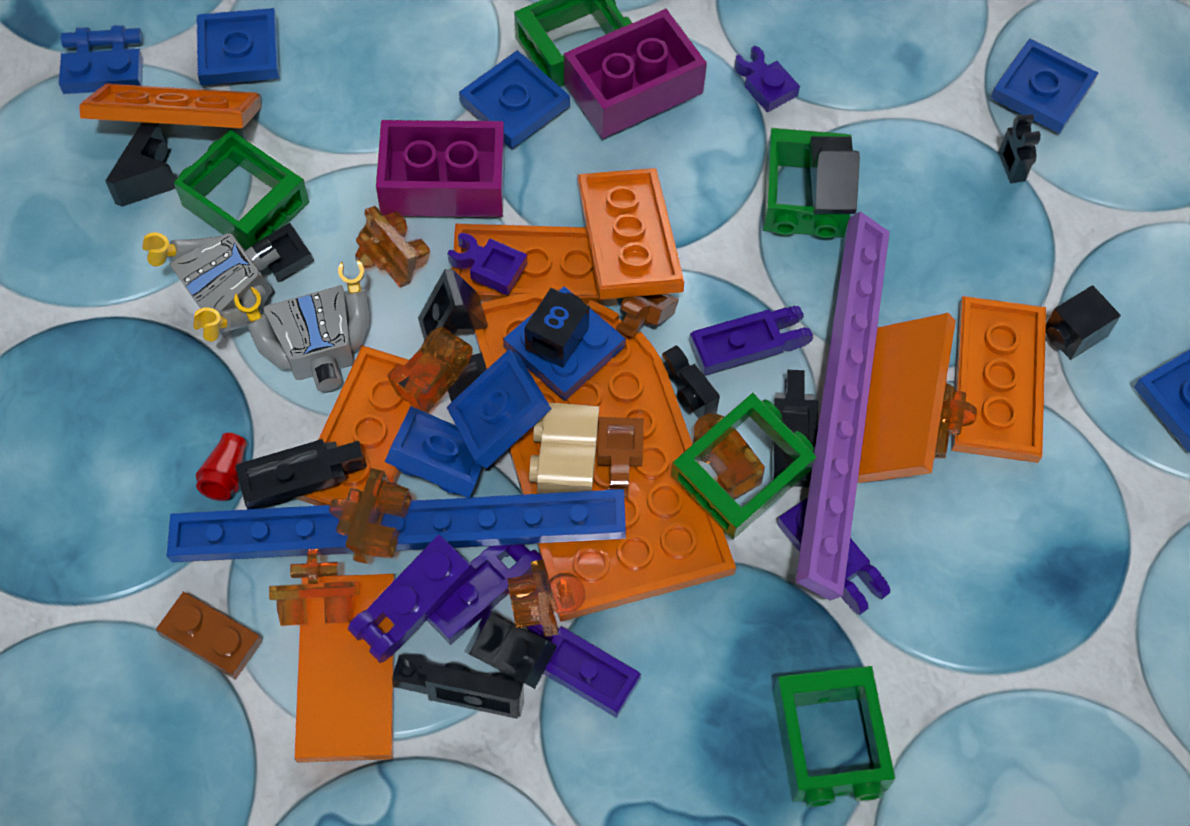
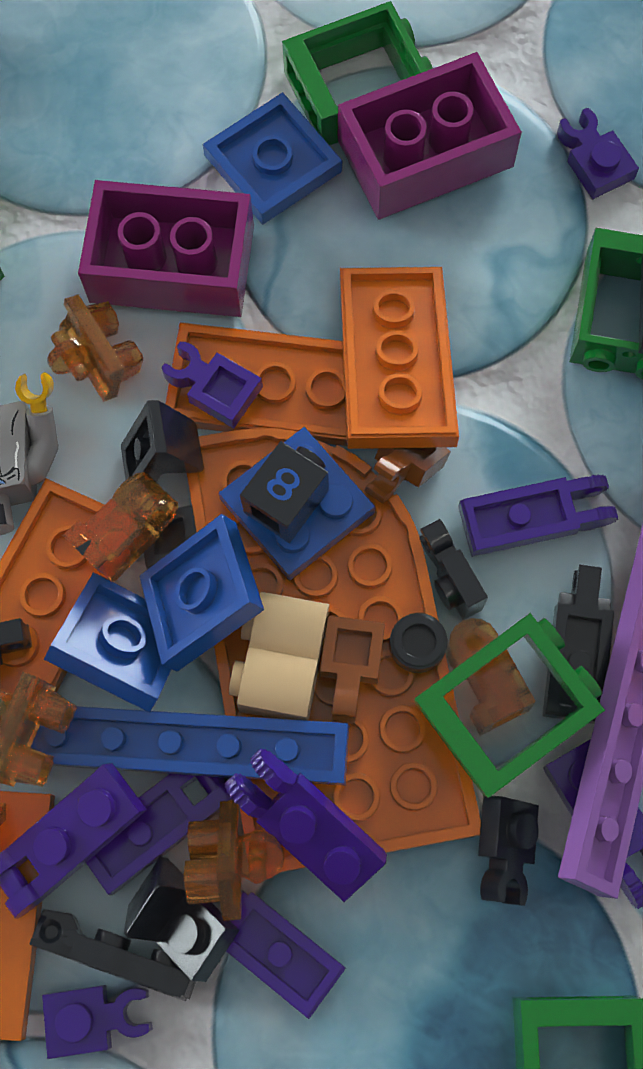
camera: 10 degrees right, 10 degrees up
(438, 738) = (83, 1020): none -> dark purple plate
(603, 568) = (308, 825): none -> dark purple hinge
(670, 434) = (418, 642): none -> black tile
(757, 572) = (509, 841): none -> black plate

